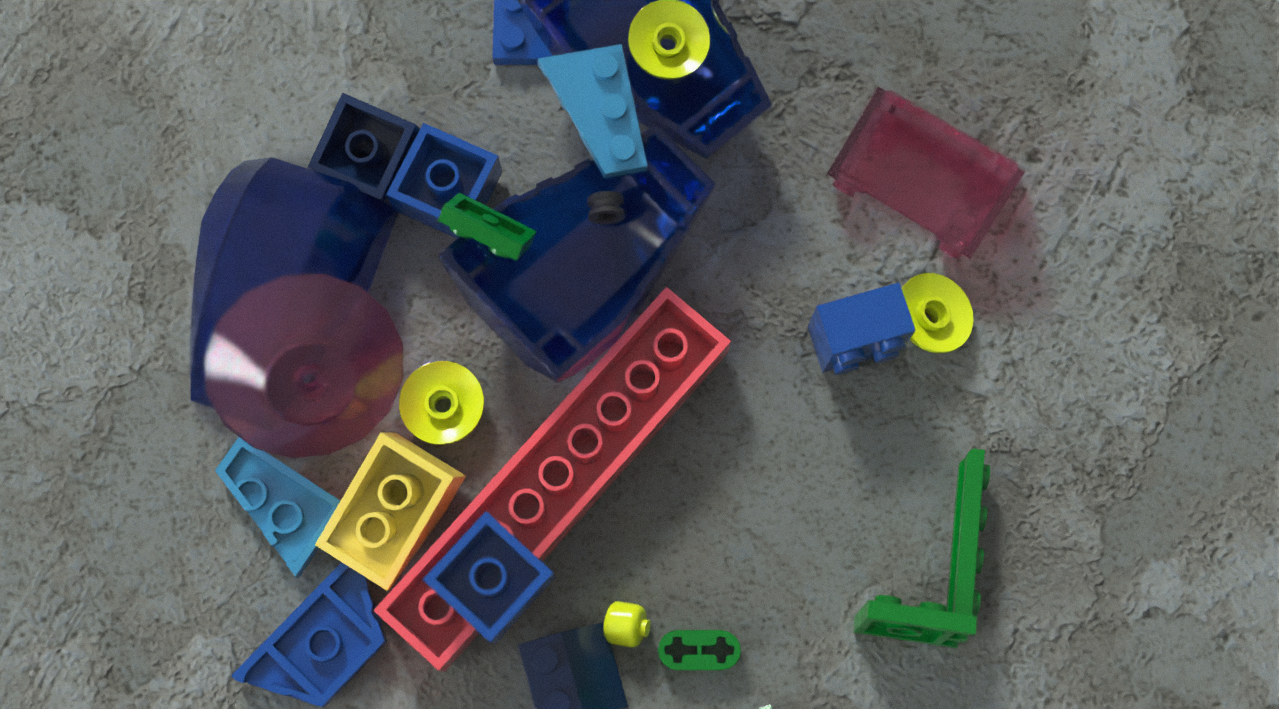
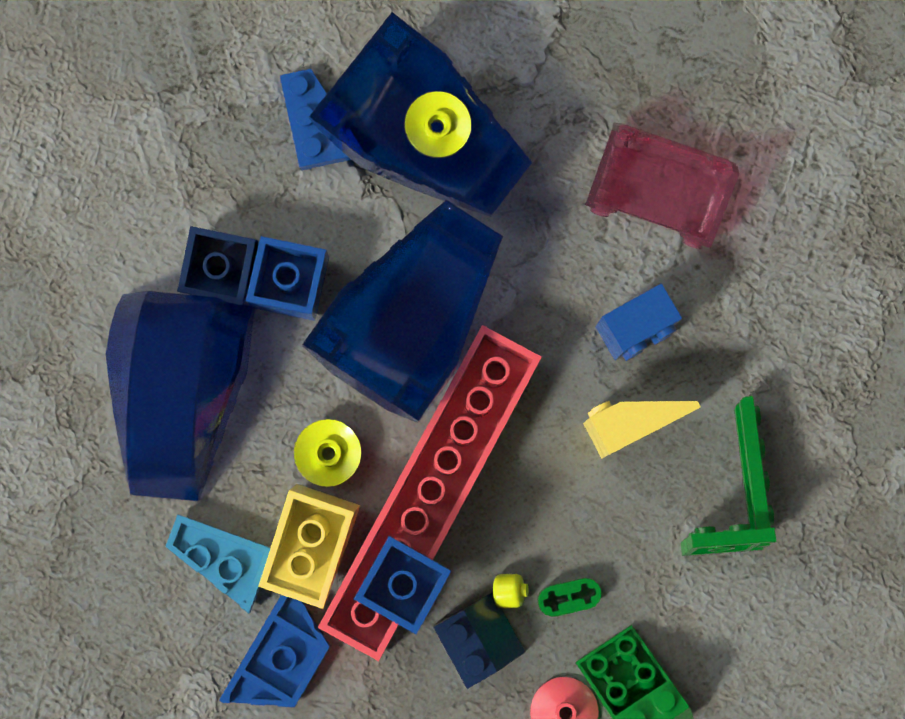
camera: 15 degrees left, 5 degrees up
(298, 330) = (200, 432): clear pink dish -> none
(477, 221) = (336, 314): green plate -> none
(600, 102) = (399, 194): dark azure wing -> none
(606, 207) = (419, 271): dark grey bush -> none
(826, 446) = (627, 422): none -> light yellow slope
(945, 305) = (700, 288): neon yellow dish -> none

